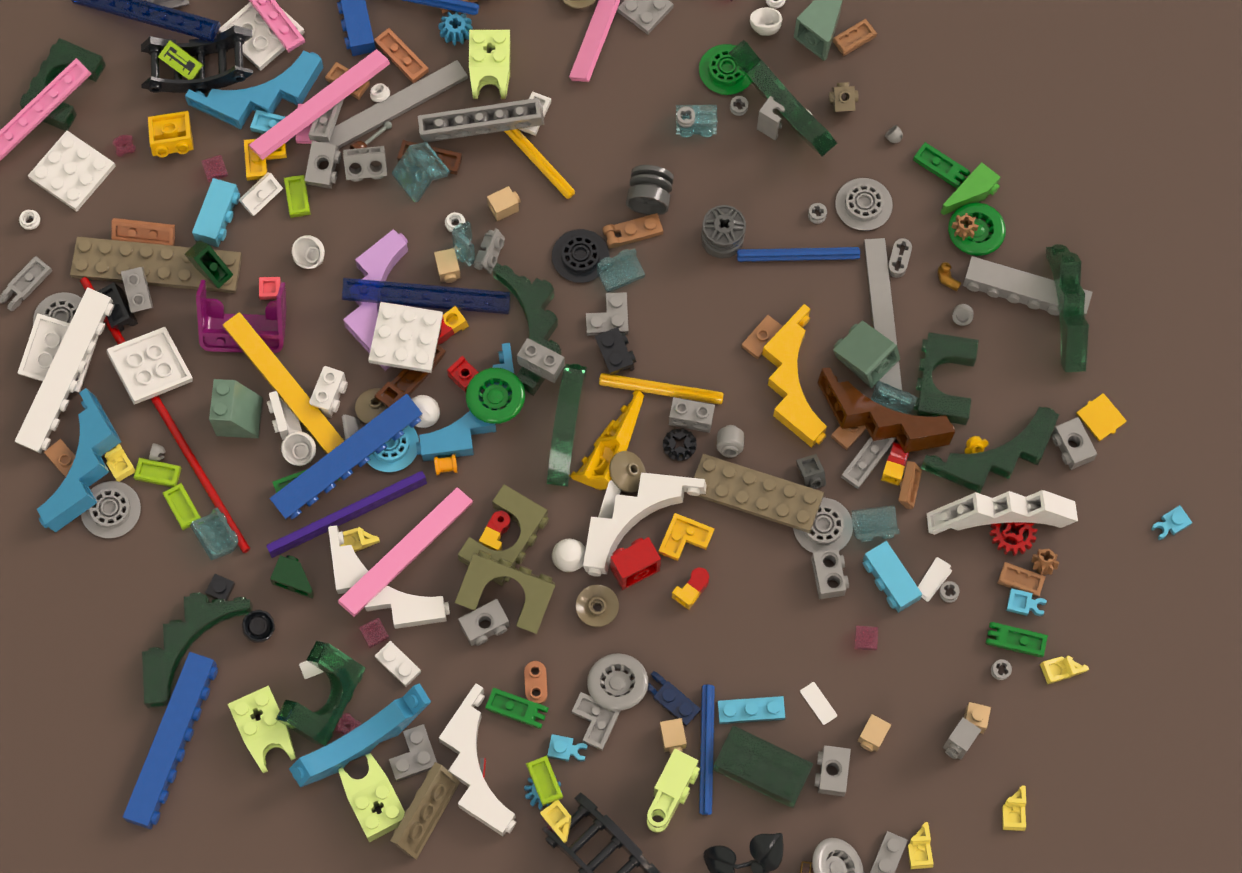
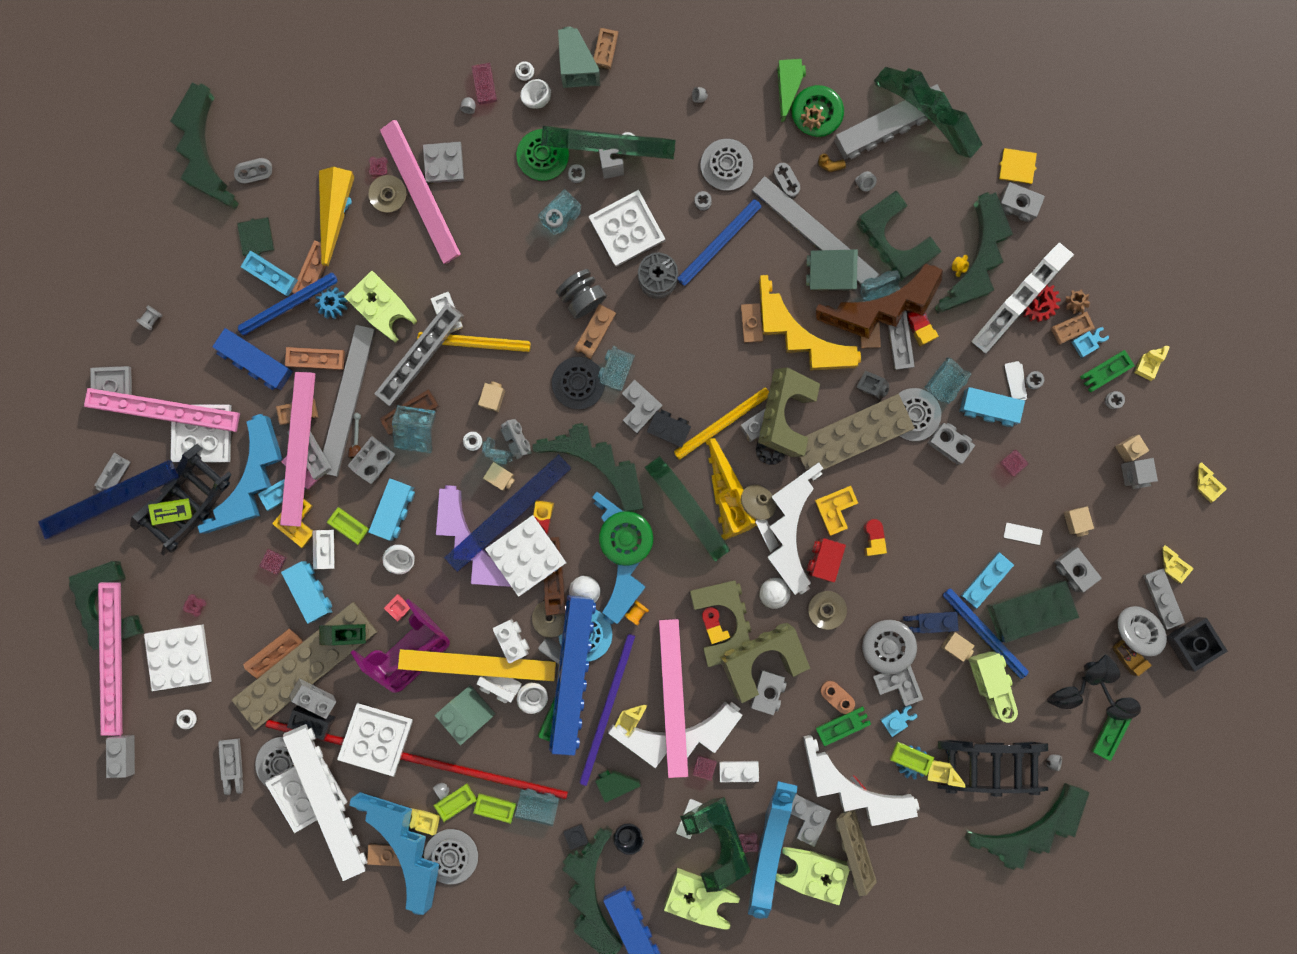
camera: 40 degrees left, 15 degrees up
(170, 134) = (217, 567): yellow plate -> none
(318, 153) = (344, 500): light grey brick -> none
(341, 213) = (392, 510): none -> medium azure brick
(379, 92) = (328, 399): white plate -> none
(458, 369) = (580, 544): red brick -> none
(541, 360) = (632, 485): light grey brick -> none
(693, 421) = (774, 429): none -> olive arch
(730, 441) = (803, 416): light grey head -> none
(736, 178) = (627, 228): none -> white plate
(849, 102) = (642, 101): dark tan brick -> none
(909, 485) = (944, 333): medium nougat plate -> none
(941, 165) = (751, 87): green hinge -> none
(1173, 521) = (1128, 193): medium azure plate -> none

